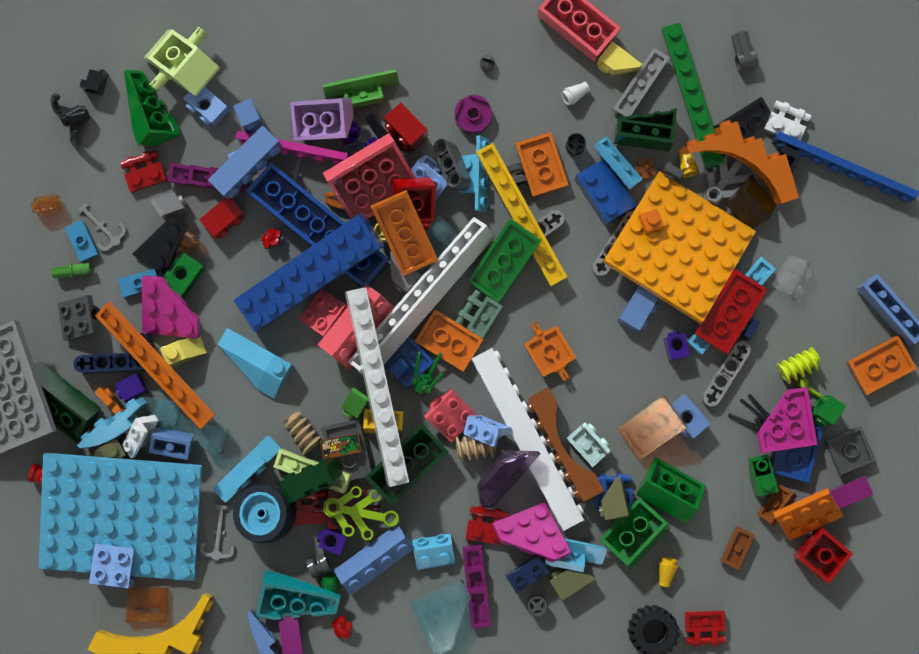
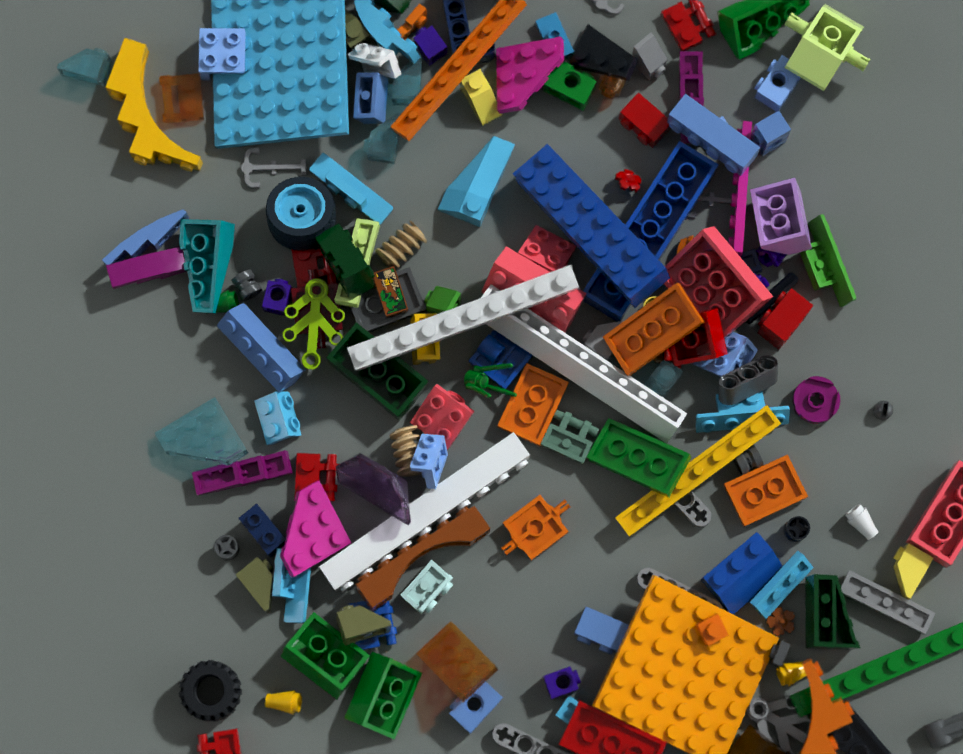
camera: 90 degrees right, 5 degrees down
(342, 627) = (177, 322): red plant -> none

